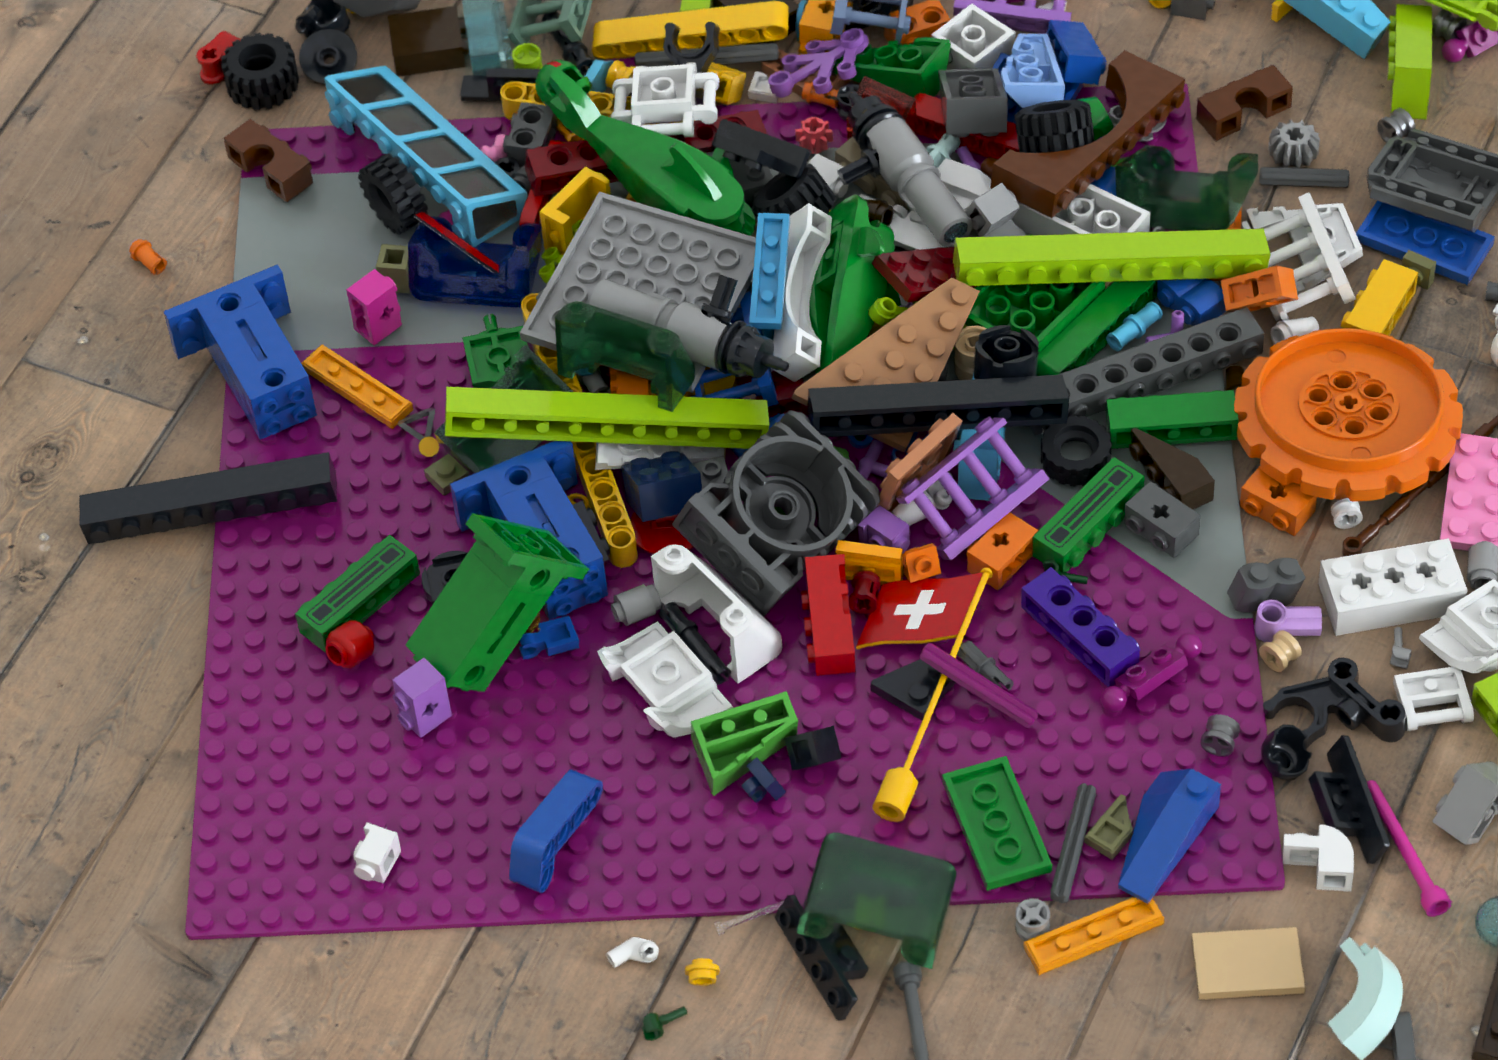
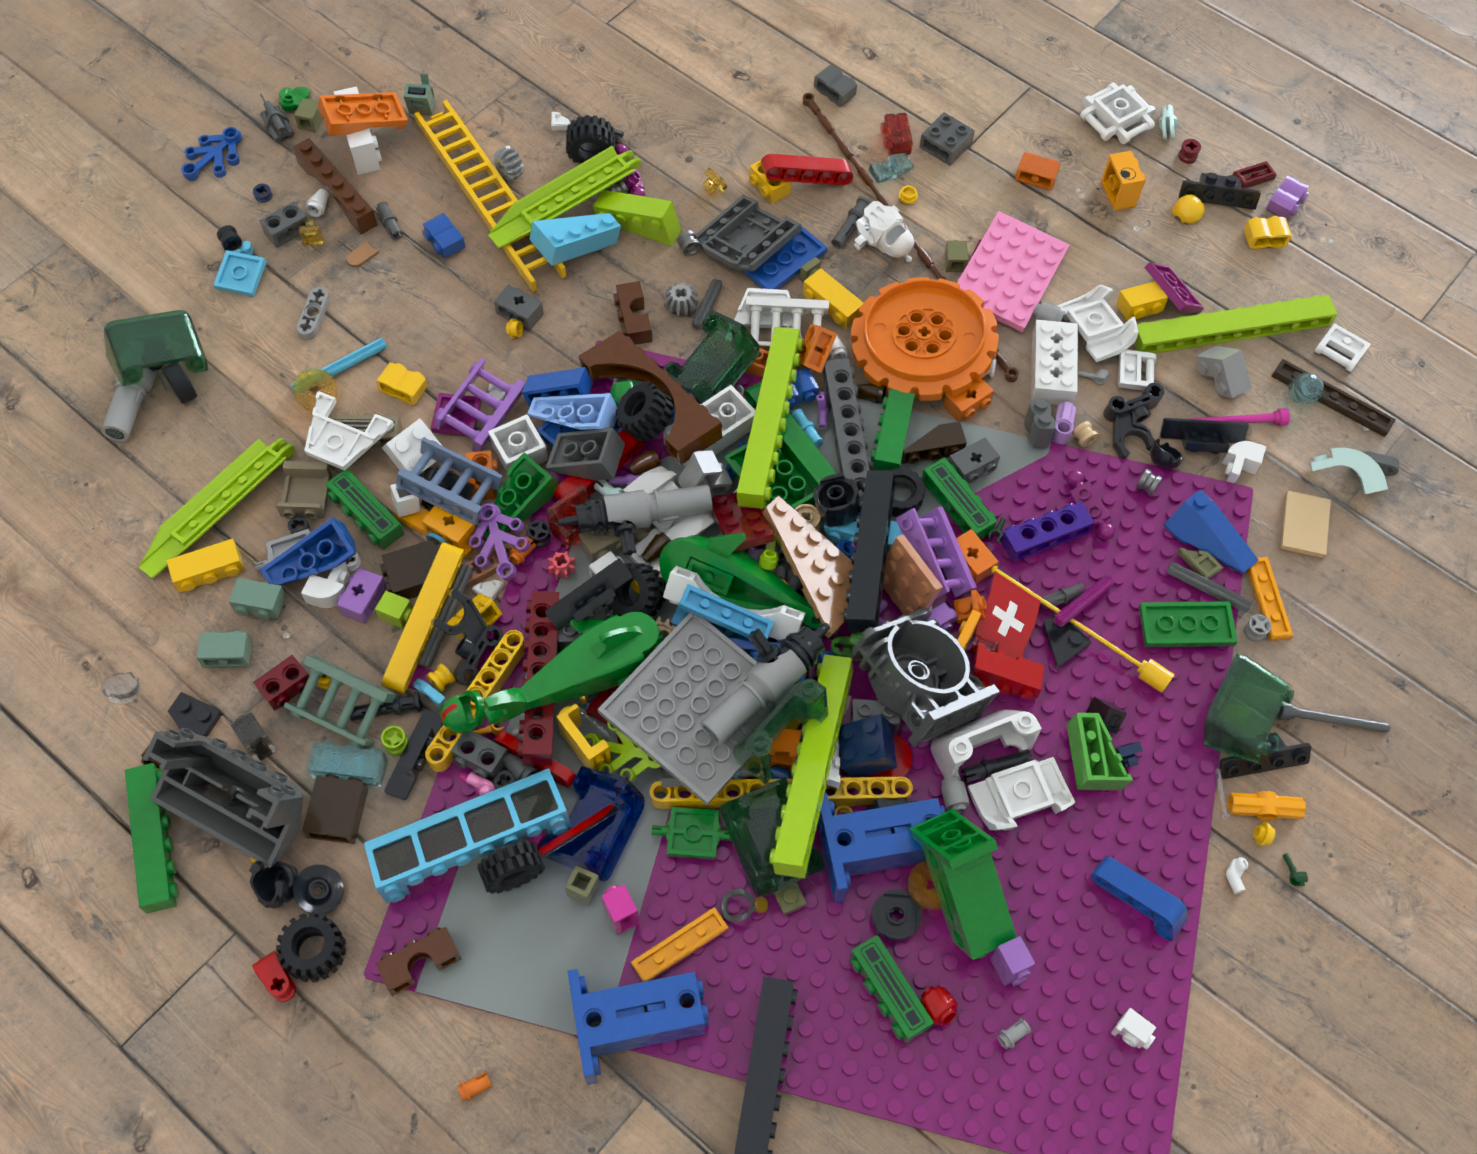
camera: 80 degrees left, 10 degrees up
(337, 731) = (1013, 1034): none -> light grey pin
(666, 96) = (507, 645): white brick -> none
(746, 969) = (1266, 805): none -> light orange piece

